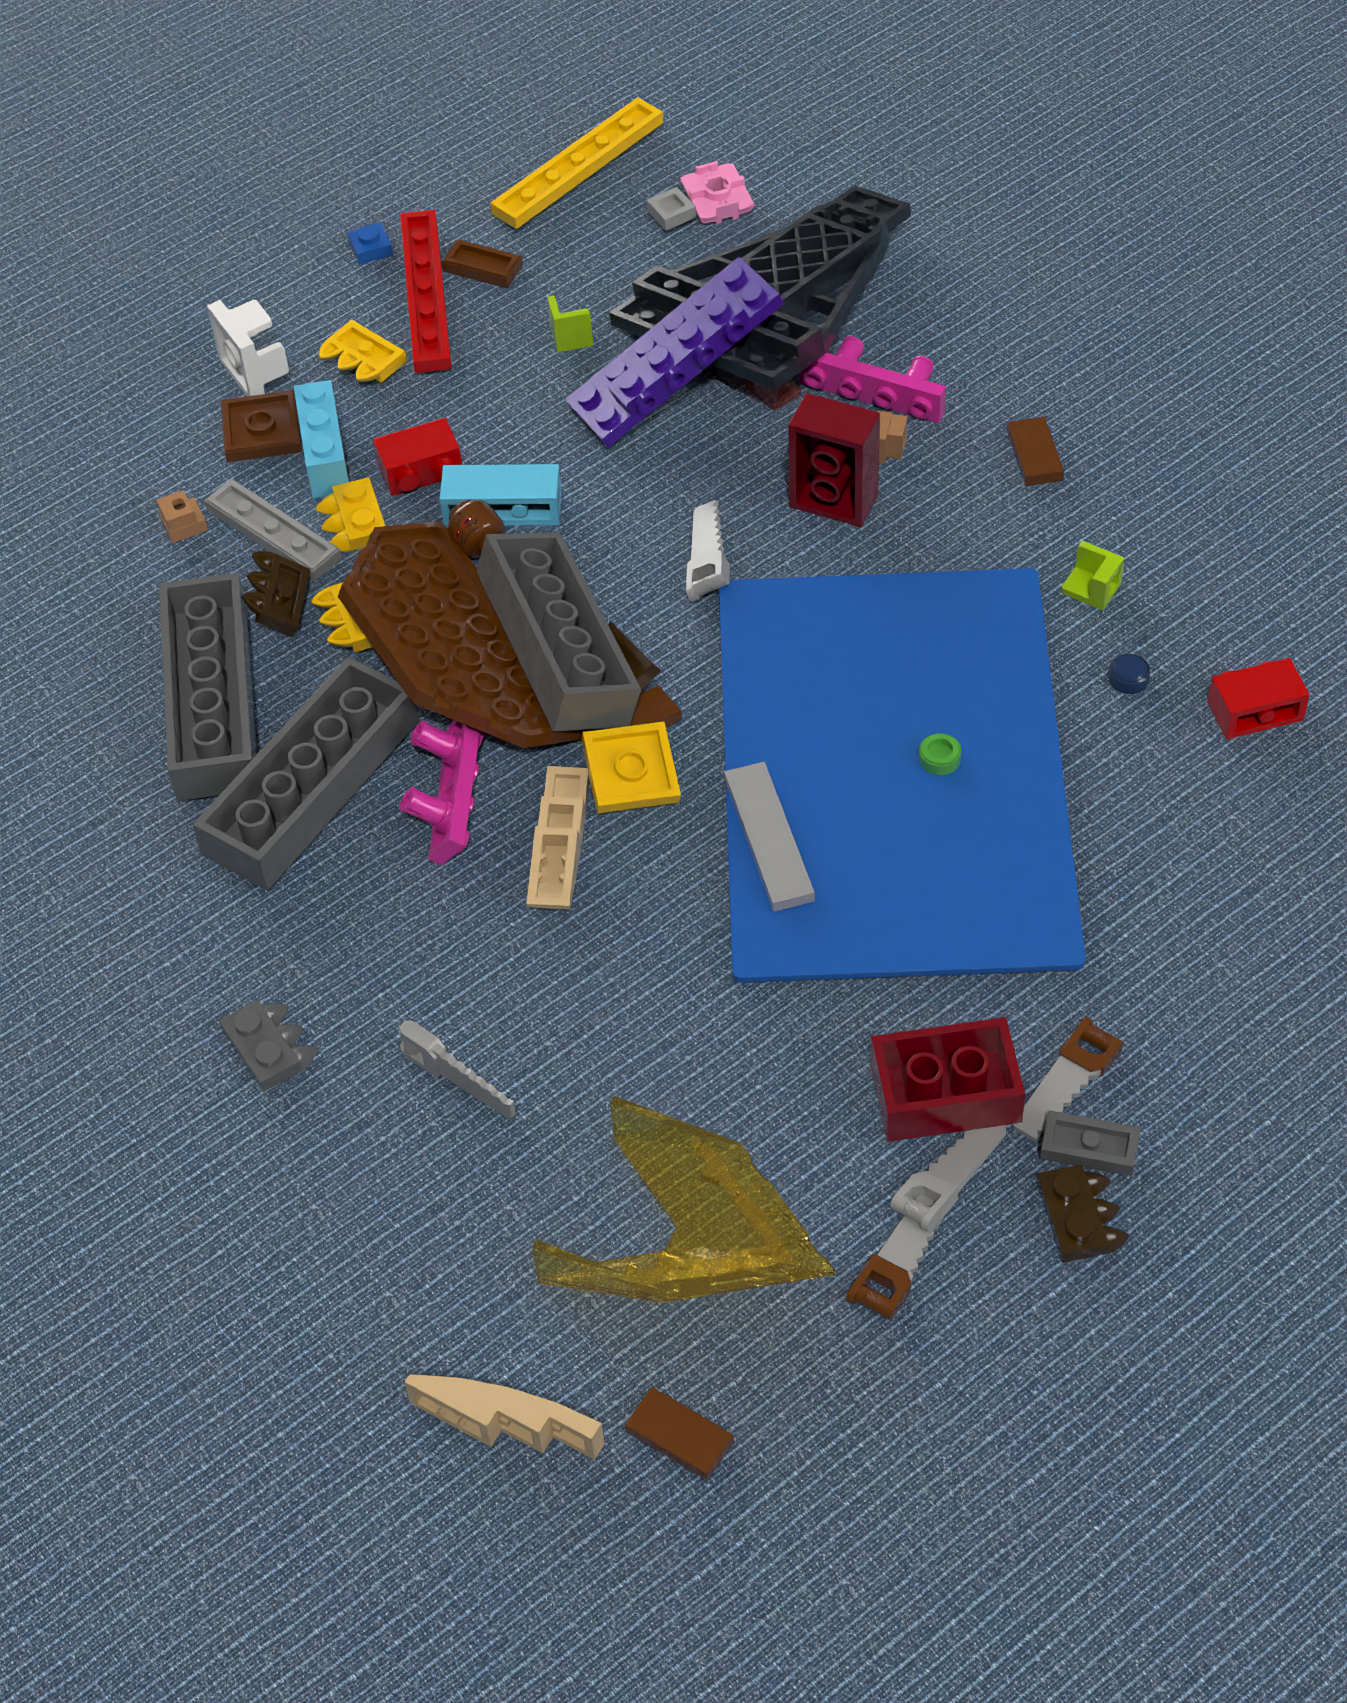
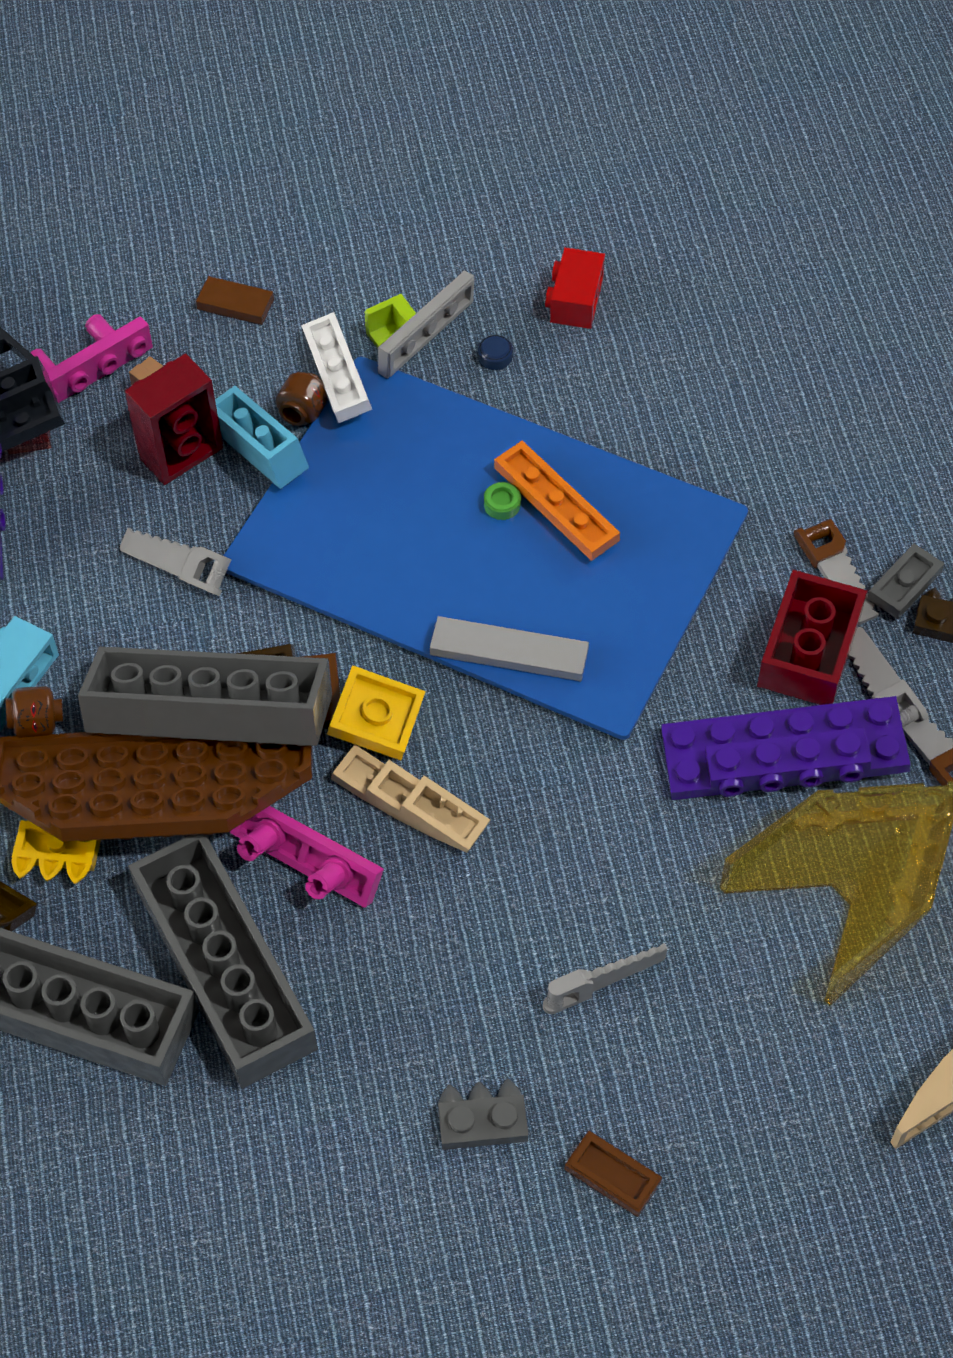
camera: 65 degrees left, 5 degrees up
(260, 1170) = (613, 1173): none -> reddish brown tile
(806, 1118) = (785, 748): none -> dark purple plate
(868, 533) = (260, 437): none -> medium azure brick
(947, 547) = (301, 398): none -> reddish brown head
(966, 794) = (557, 500): none -> orange plate
(1000, 554) = (336, 367): none -> white plate
(1108, 597) = (425, 324): none -> light grey tile

